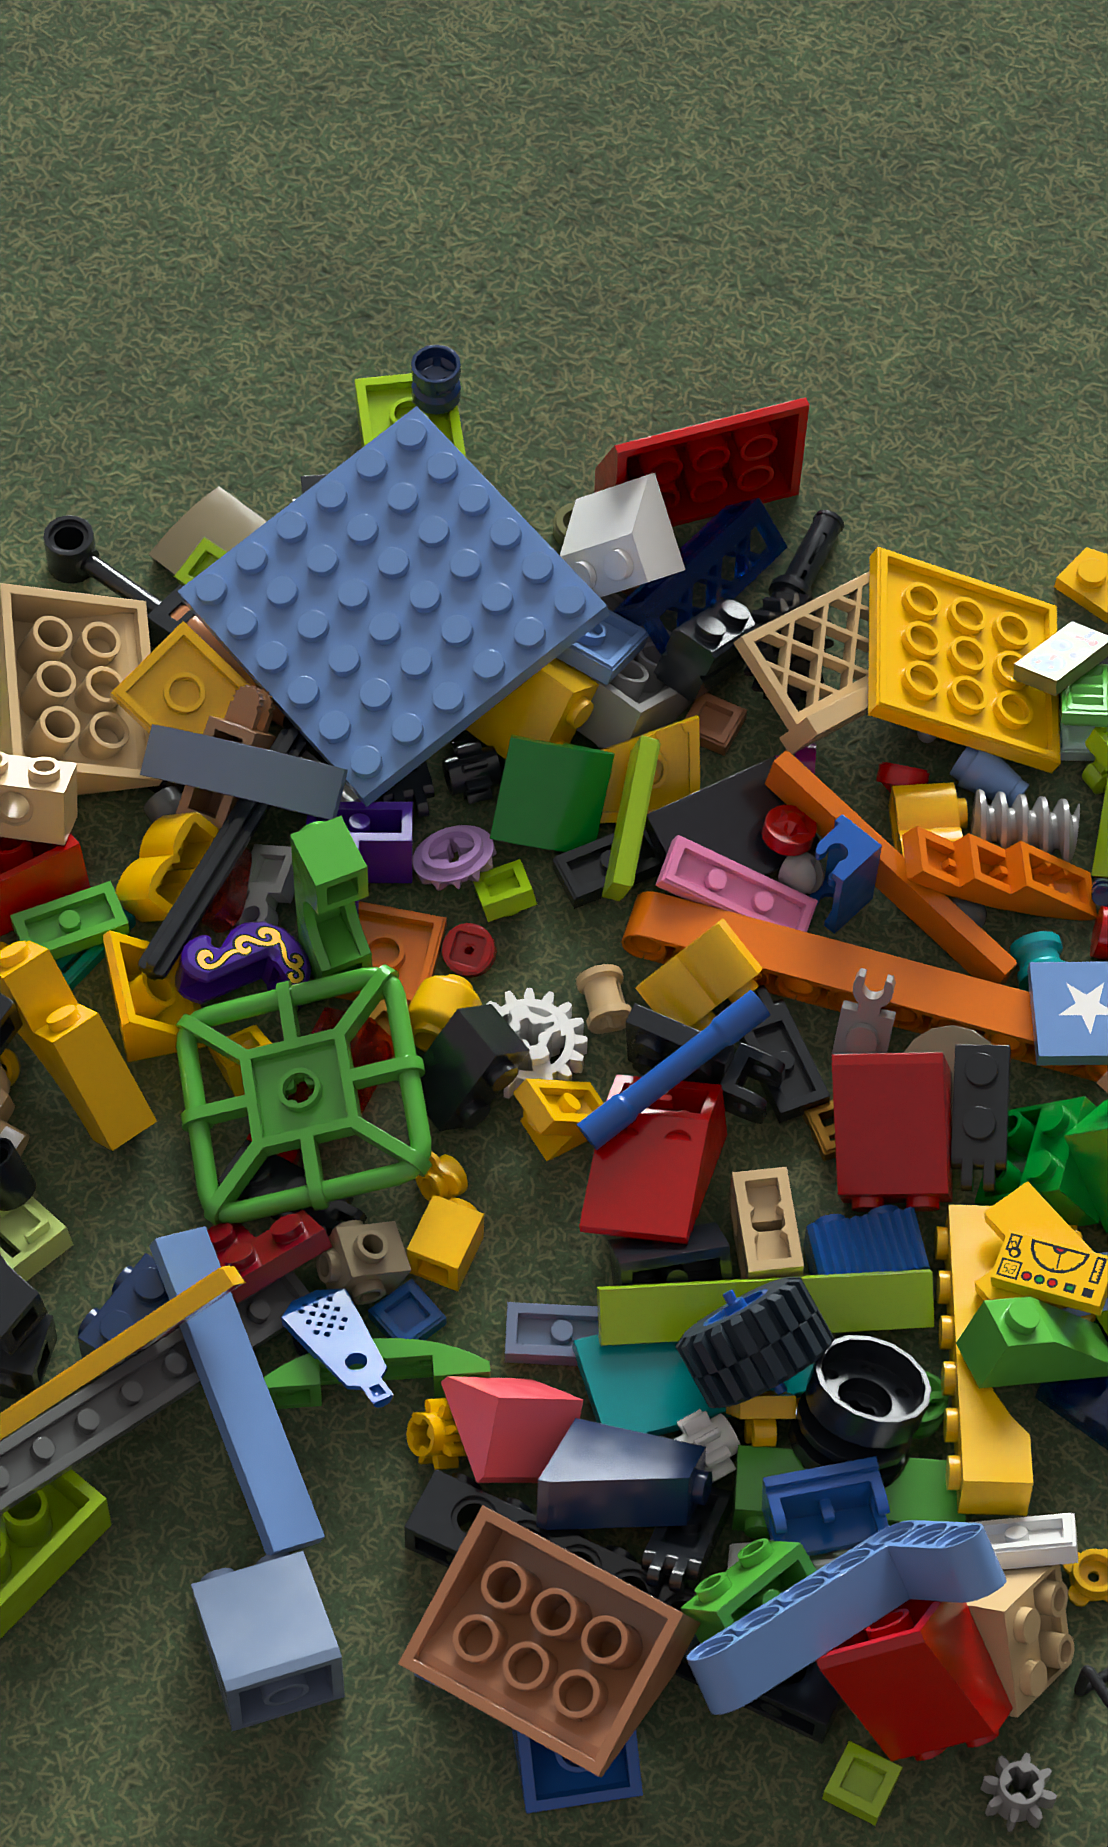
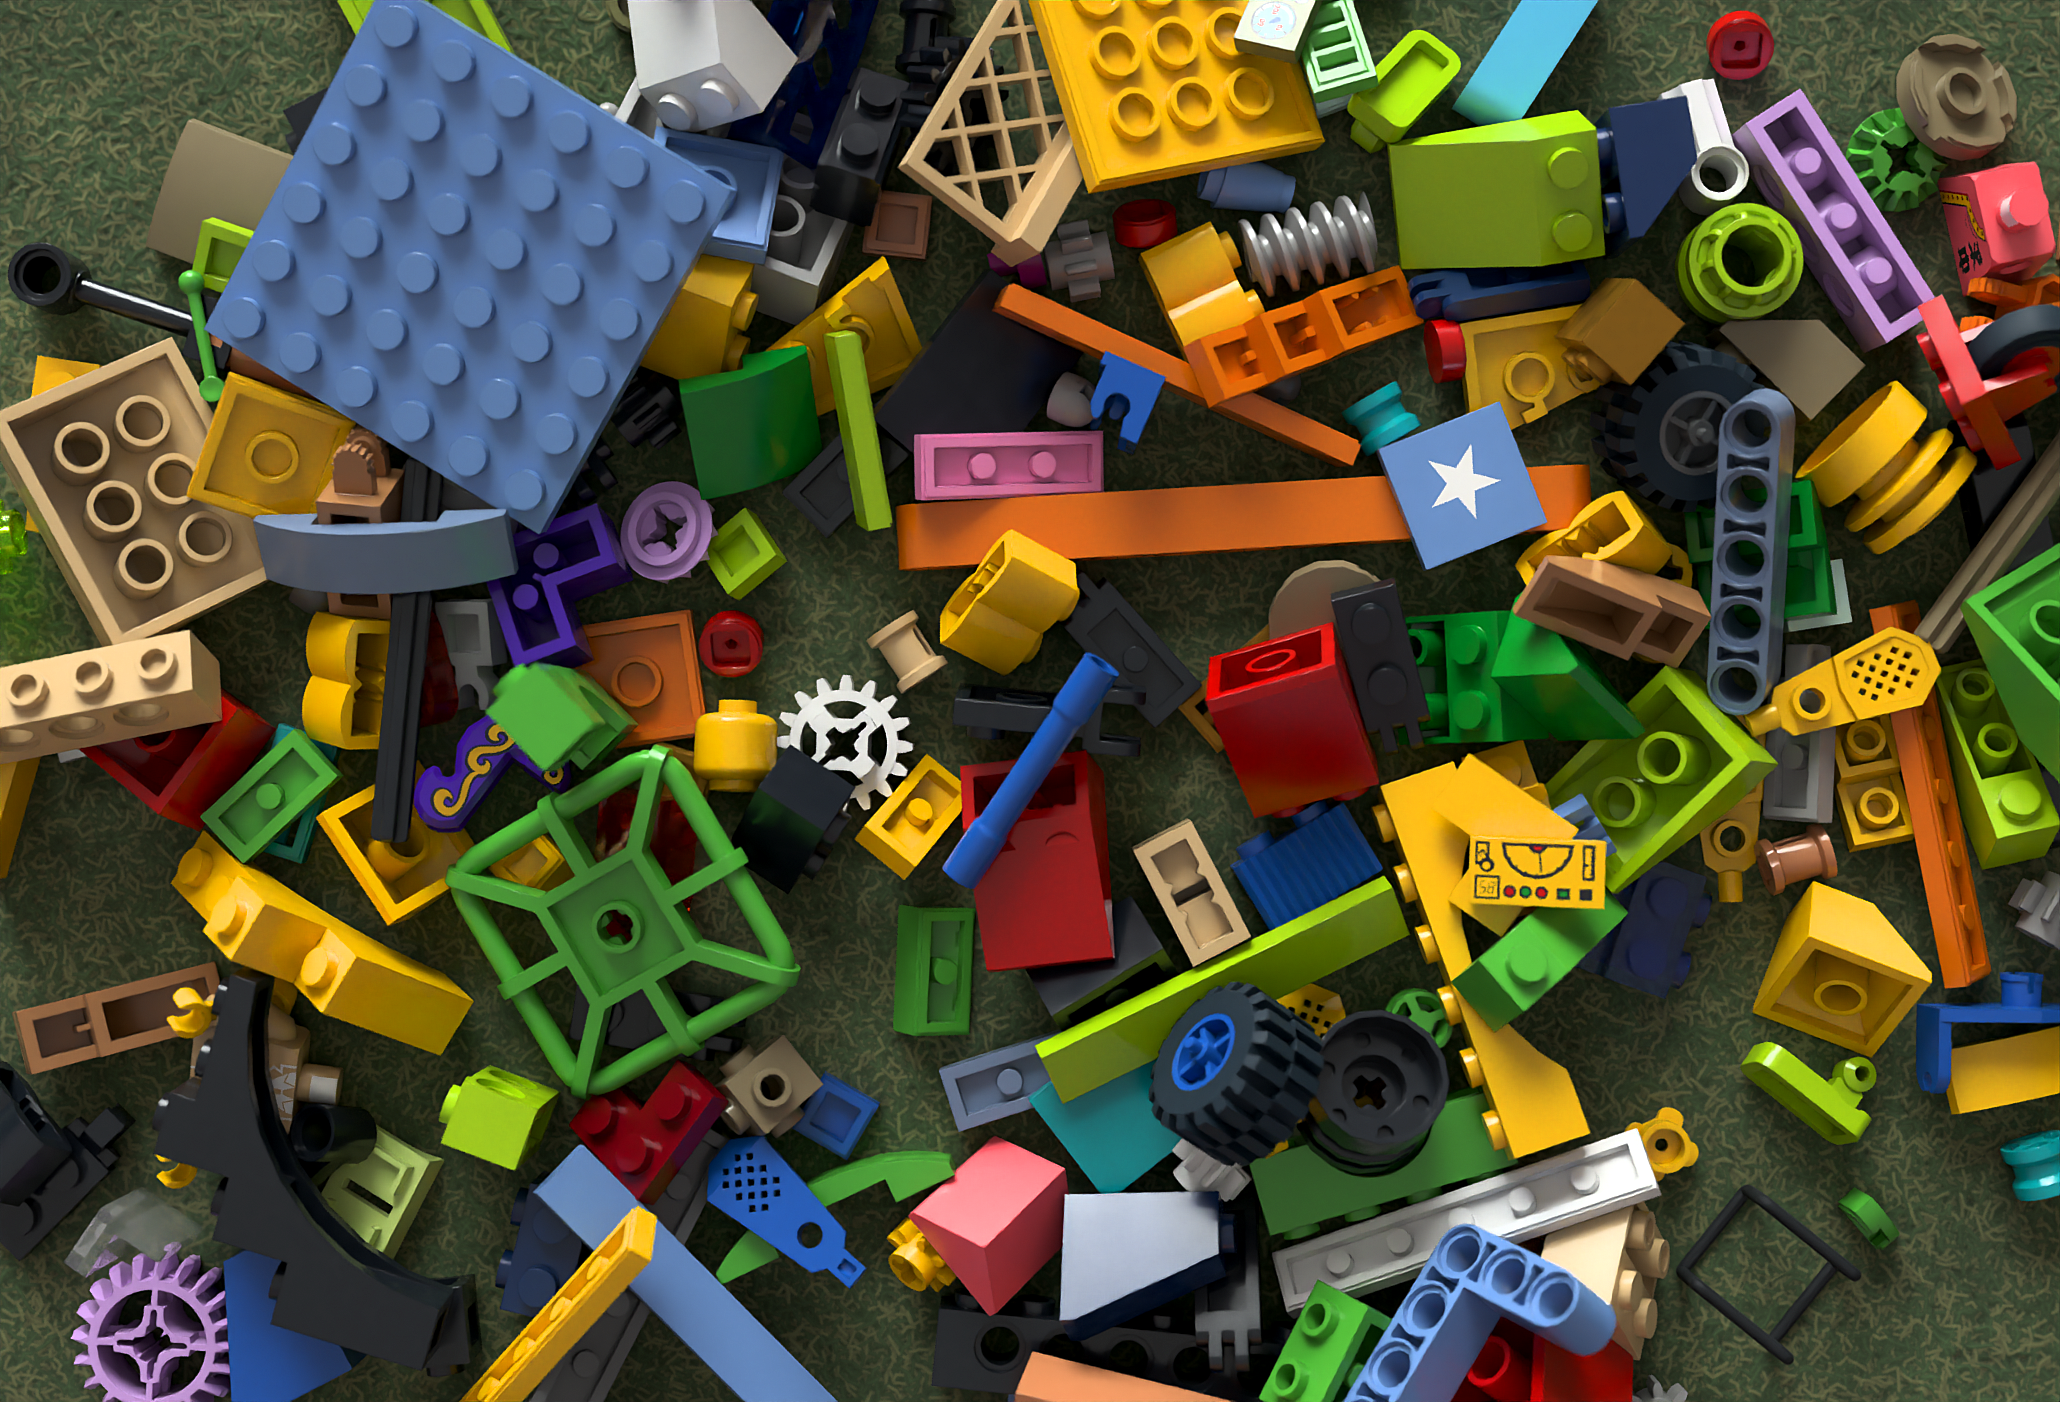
camera: 15 degrees left, 30 degrees up
(141, 1197) = (498, 1116): none -> lime brick
(176, 574) = (192, 284): none -> bright green hinge
(443, 1179) = (814, 948): yellow plate -> none
(446, 1241) = (845, 1020): yellow brick -> none
(532, 1237) = (934, 970): none -> bright green slope
(788, 830) = (1042, 364): red tile -> none
(826, 1505) = (1372, 1222): blue hinge -> none
(846, 776) = (1079, 260): none -> light grey gear
(865, 1025) = (1212, 579): light grey plate -> none

